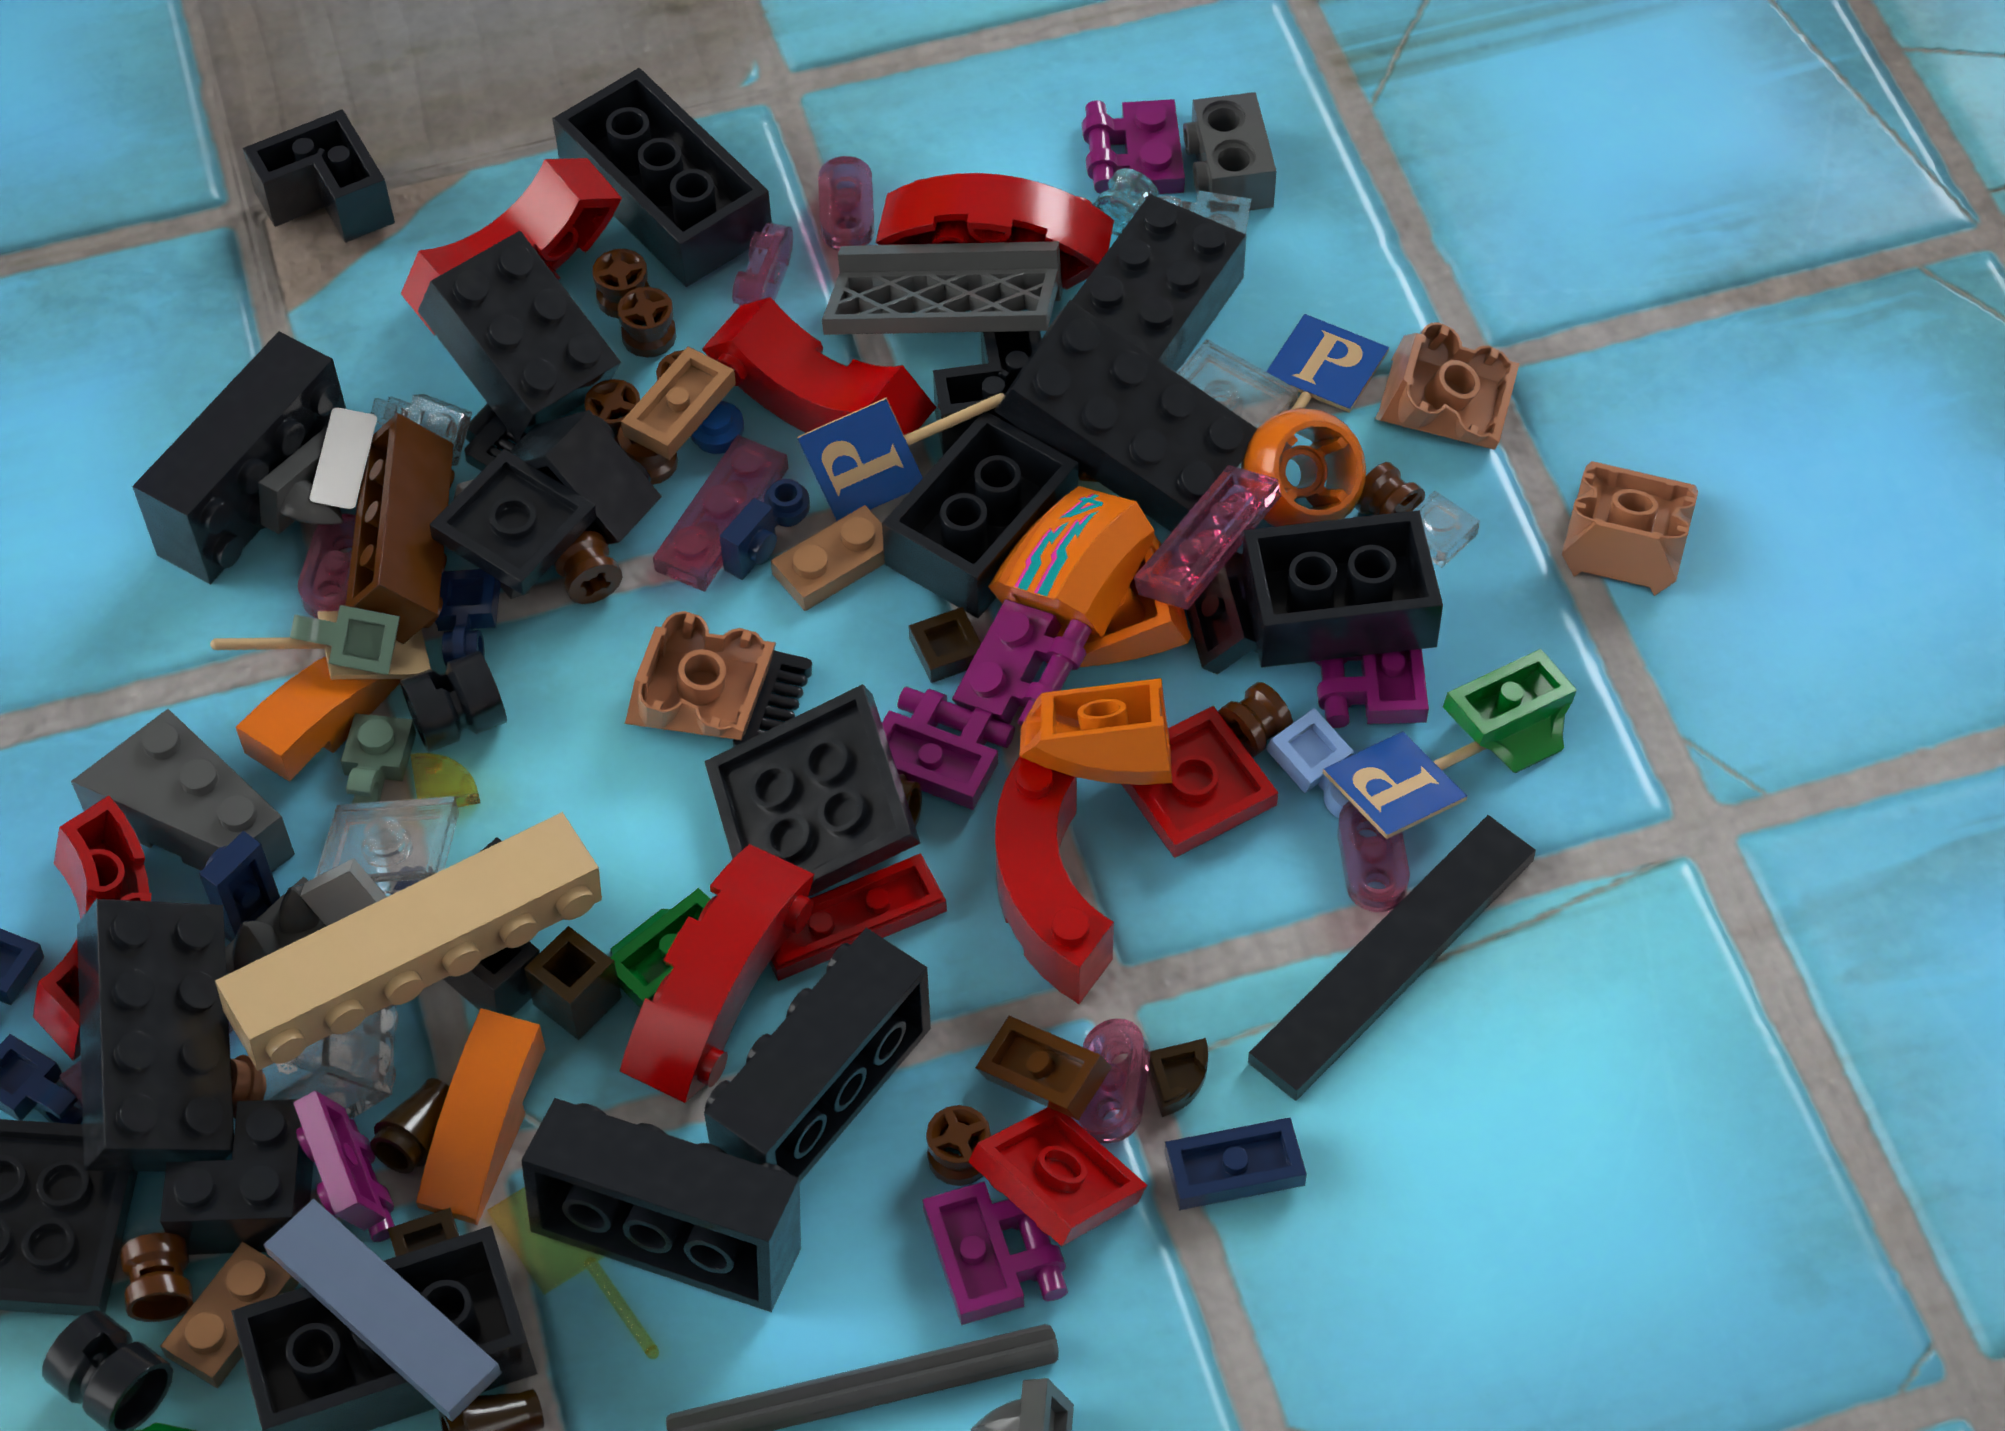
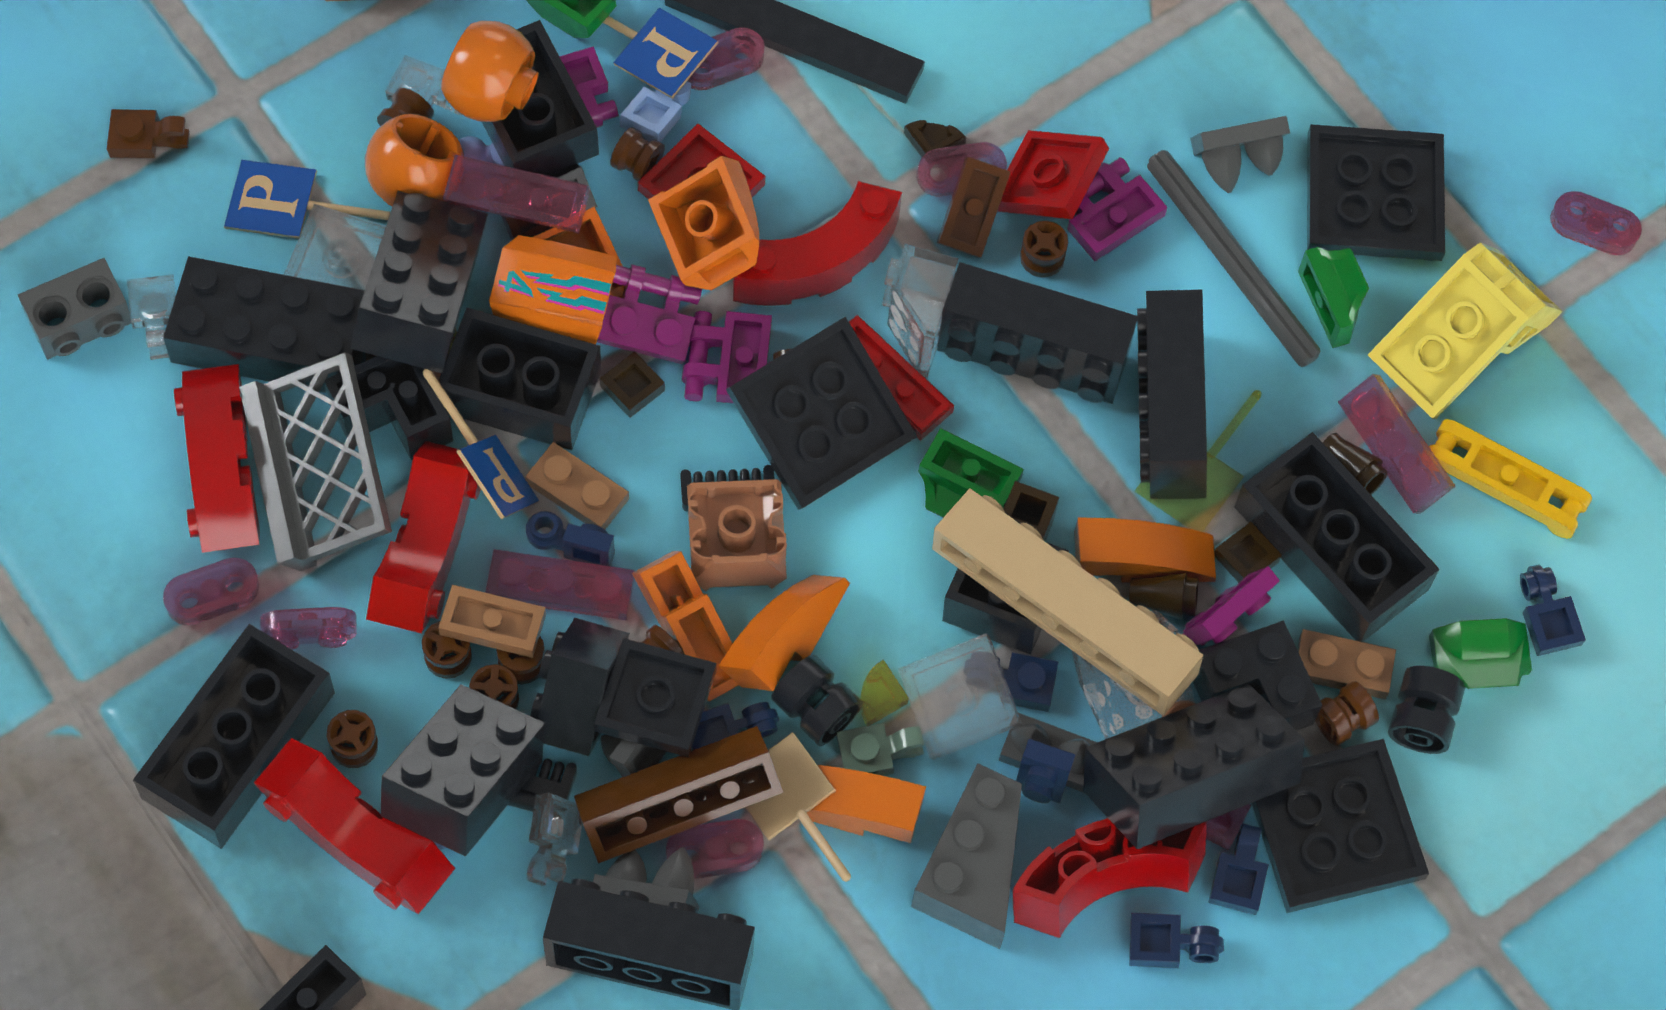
camera: 115 degrees left, 10 degrees up
(341, 892) = (1022, 696): light grey tile -> none
(343, 458) = (629, 861): white sticker -> none
(358, 638) = (806, 772): sand green plate -> none
(383, 1309) = (1333, 523): sand blue tile -> none
(552, 690) = (783, 632): none -> orange slope
(608, 610) = (686, 613): none -> orange slope
(651, 308) = (385, 692): reddish brown wheel -> none
(715, 966) = (962, 409): red brick -> none
(924, 924) = (916, 301): none -> clear slope
(1124, 196) = (153, 373): clear light blue wheel -> none
(1149, 138) = (74, 381): magenta plate -> none
(1235, 1163) = (992, 84): dark blue plate -> none
(1354, 496) = (489, 72): none -> orange wheel
(1448, 387) = (281, 105): nougat slope -> none
(1449, 257) = (141, 131): none -> reddish brown plate

